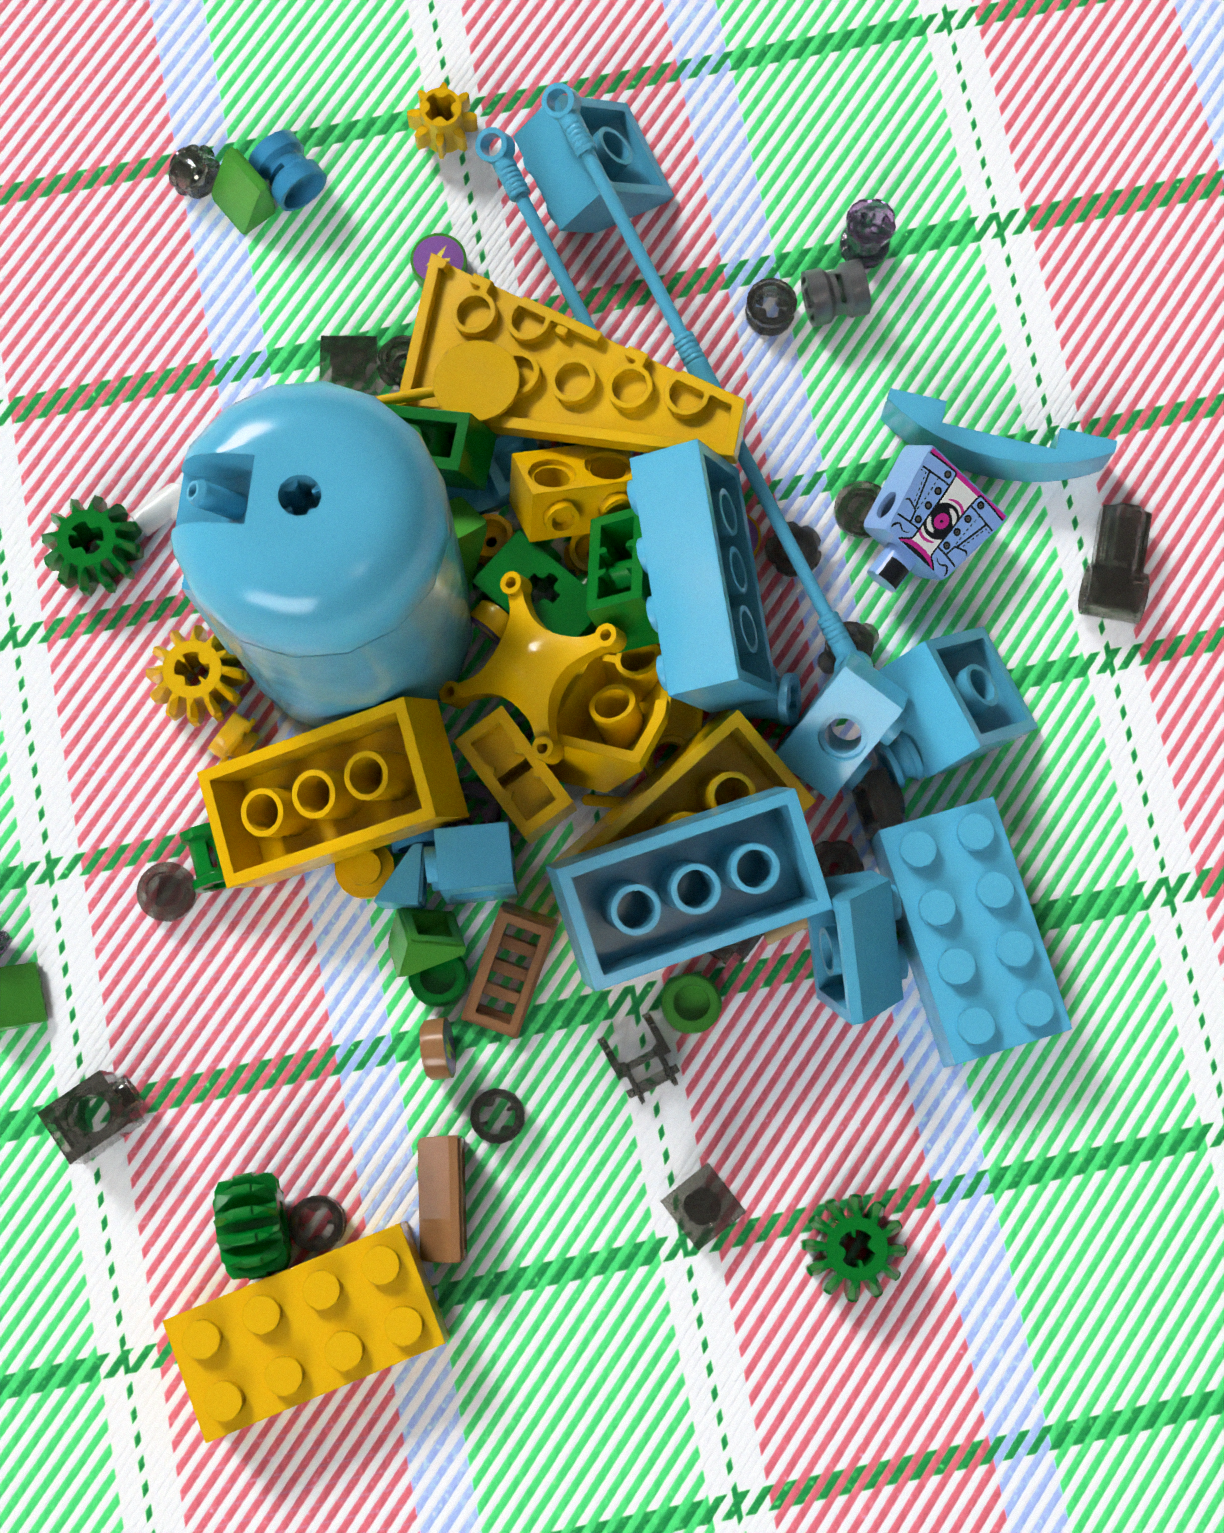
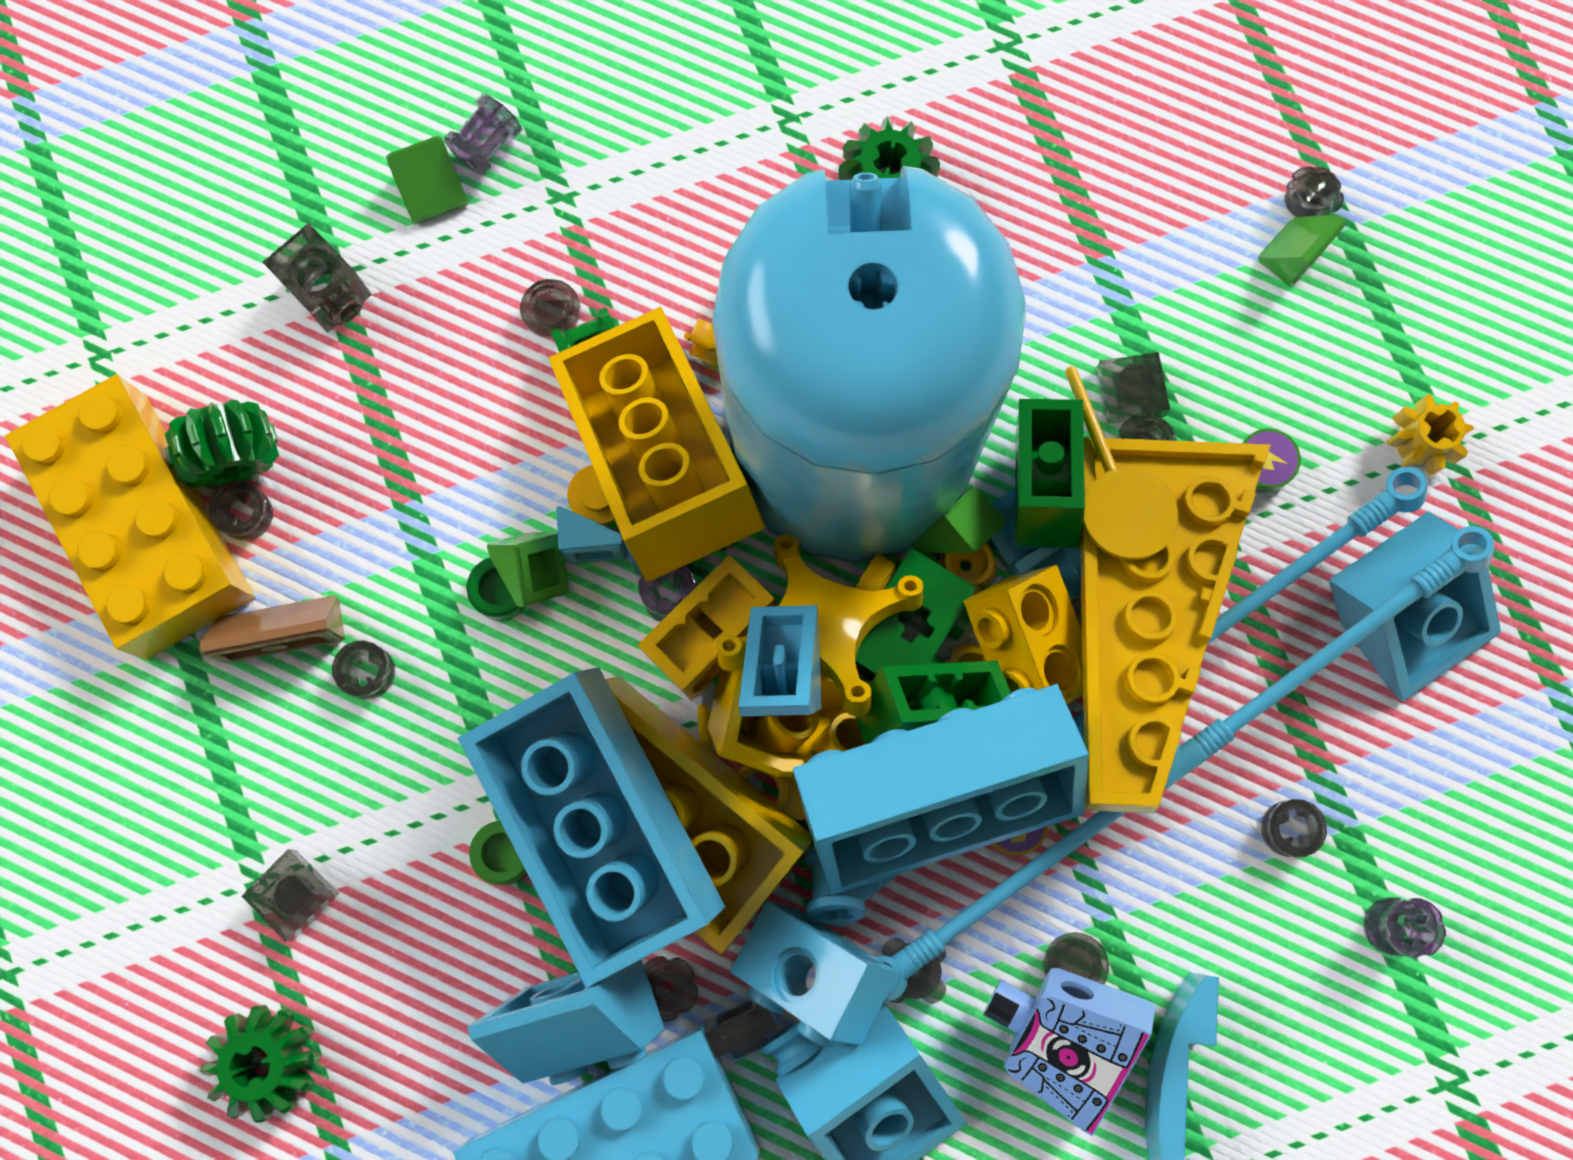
camera: 85 degrees right, 0 degrees up
(283, 164) = (1329, 291): dark azure wheel -> none
(437, 1049) = (421, 597): medium nougat tile -> none
(472, 863) = (604, 598): medium azure brick -> none
(493, 1018) = (554, 659): medium nougat slope -> none
(570, 695) = (781, 662): none -> medium azure slope
(624, 1069) = (424, 791): clear smoke piece -> none
(808, 542) = (1025, 909): clear smoke plate -> none
(835, 292) = (1321, 885): flat silver wheel -> none

